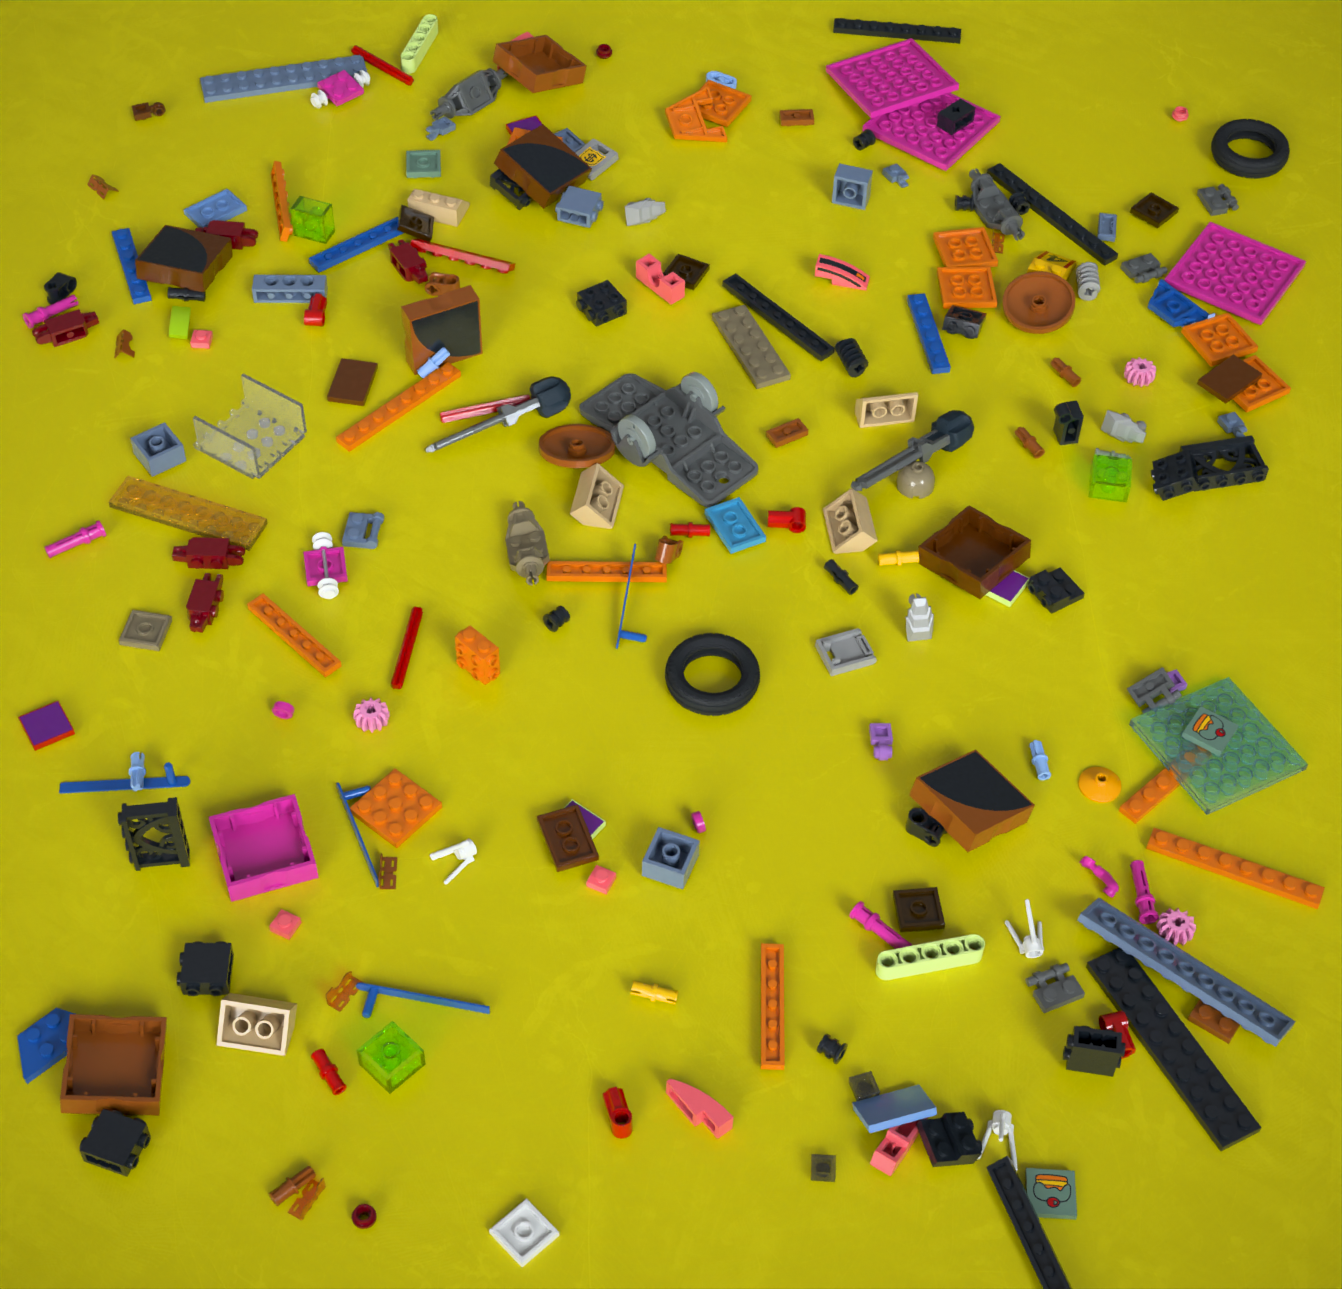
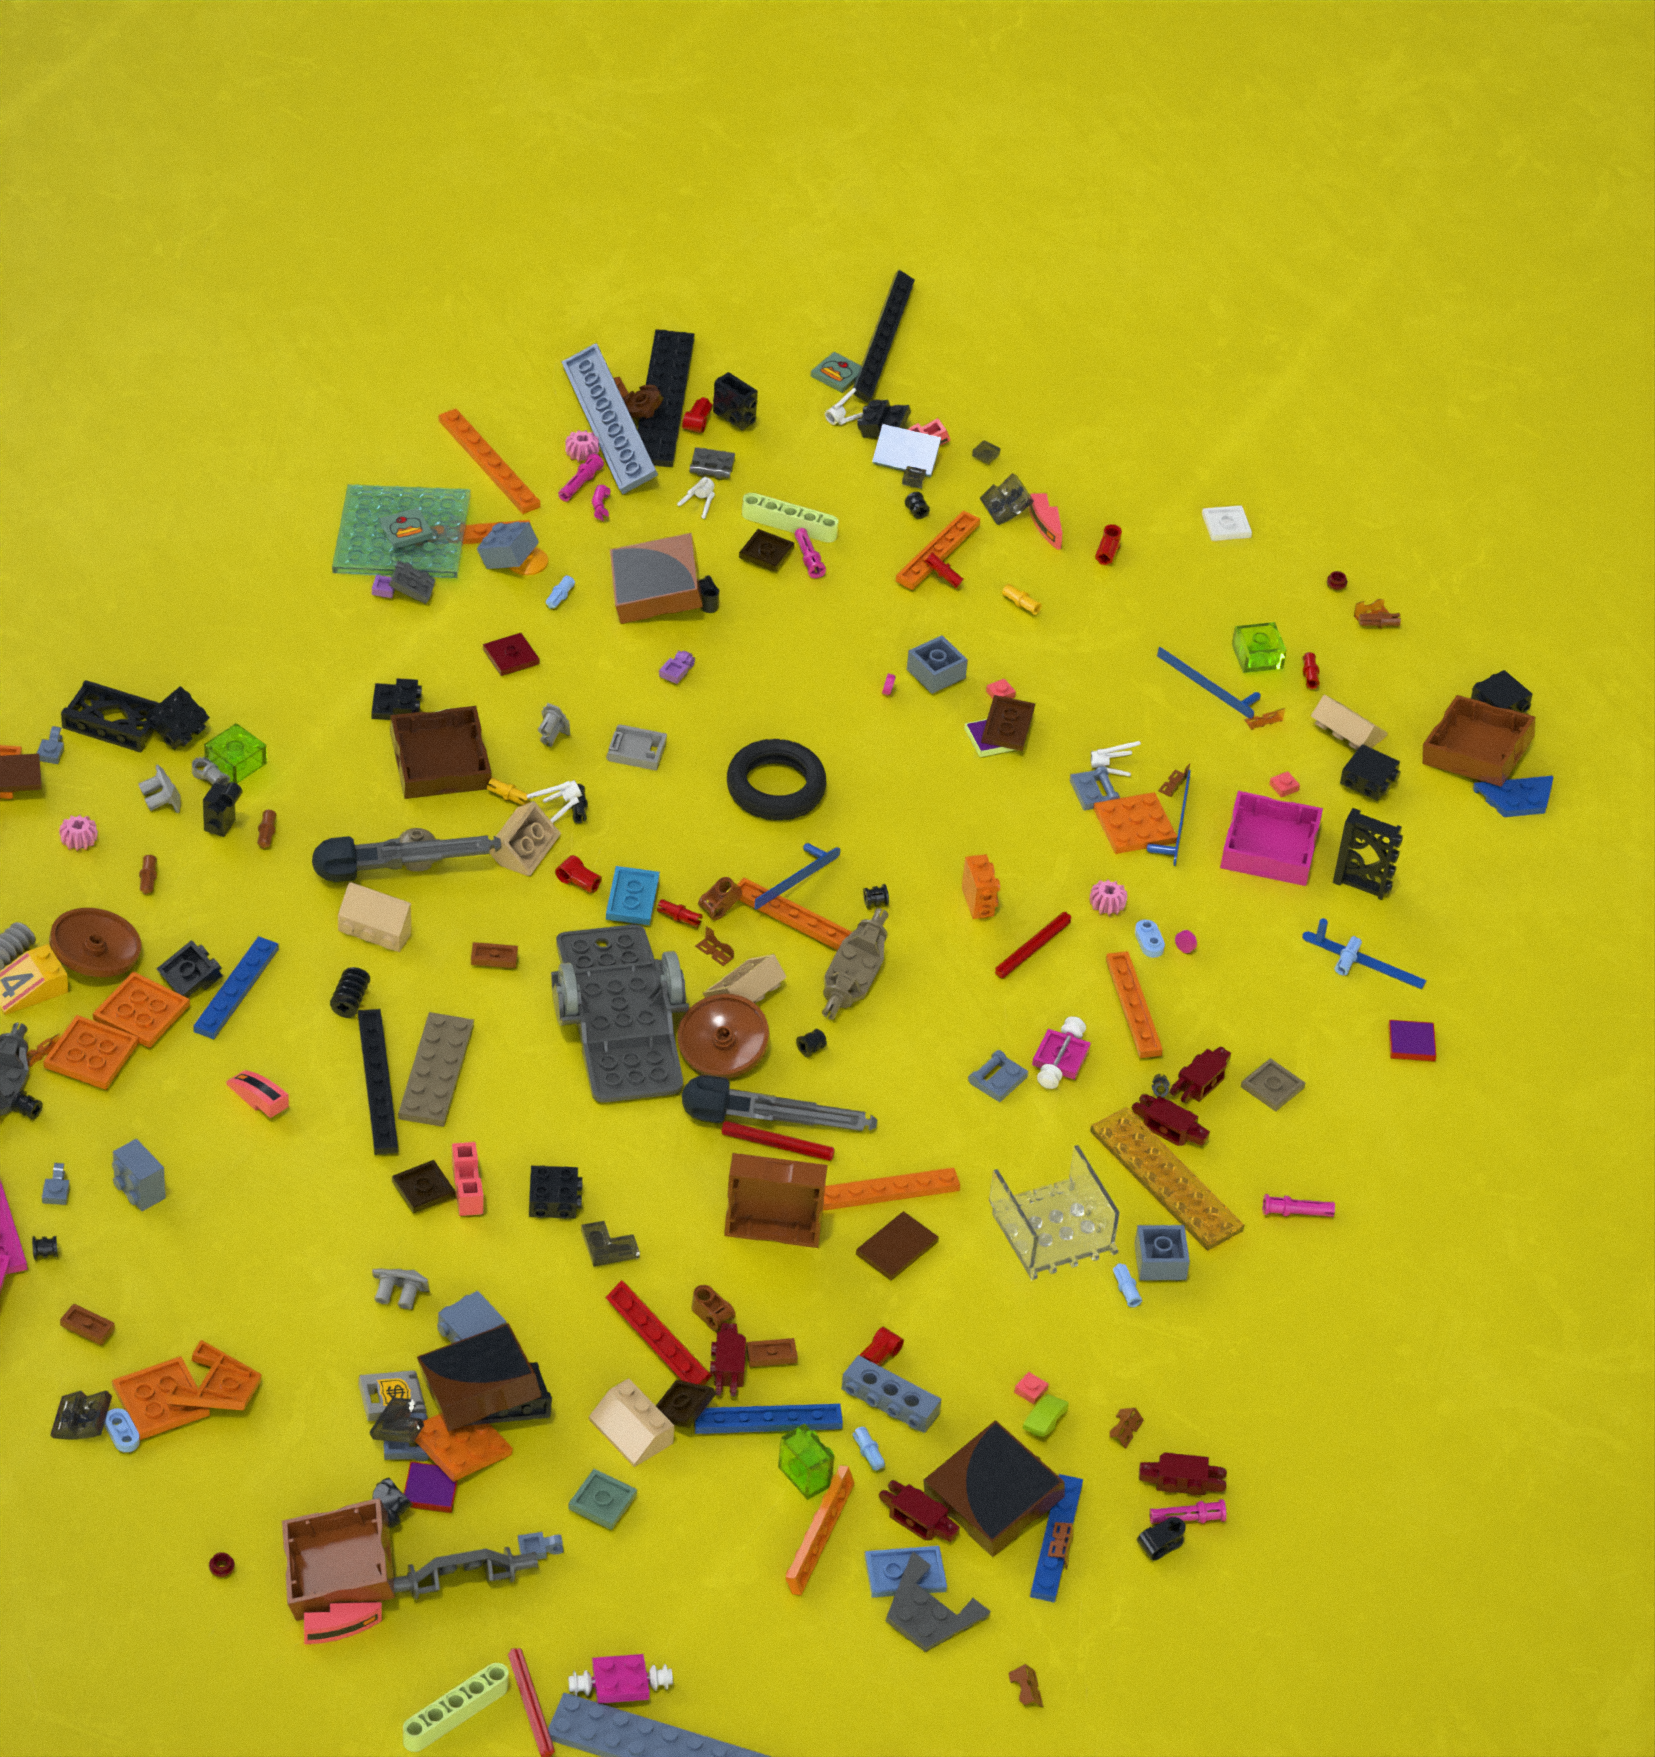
camera: 150 degrees left, 5 degrees down
(125, 255) = (1060, 1541): none -> dark orange piece
(175, 427) = (1127, 1285): none -> light blue axle
(185, 189) = (922, 1616): none -> dark grey wing
(230, 568) = (1163, 1089): none -> pin
(283, 256) = (869, 1448): none -> light blue axle
(315, 703) = (1147, 934): none -> light blue plate
(385, 279) = (771, 1352): none -> dark orange plate
(455, 817) = (1088, 790): none -> sand blue plate
(515, 481) = (811, 1042): none -> black bush
(541, 106) = (393, 1500): none -> black animal
(541, 288) = (605, 1249): none -> clear smoke plate
(572, 130) = (395, 1422): none -> clear smoke plate
(651, 523) = (709, 936): none -> dark orange piece
(745, 975) = (944, 570): none -> red pin
(750, 77) = (81, 1415): none -> clear smoke slope
(754, 1107) = (1007, 499): none -> clear smoke slope
(850, 565) = (568, 790): none -> white plant
(1018, 681) = (511, 654): none -> dark red plate
(1118, 763) = (507, 545): none -> sand blue brick
(1173, 1003) = (643, 401): none -> reddish brown plate

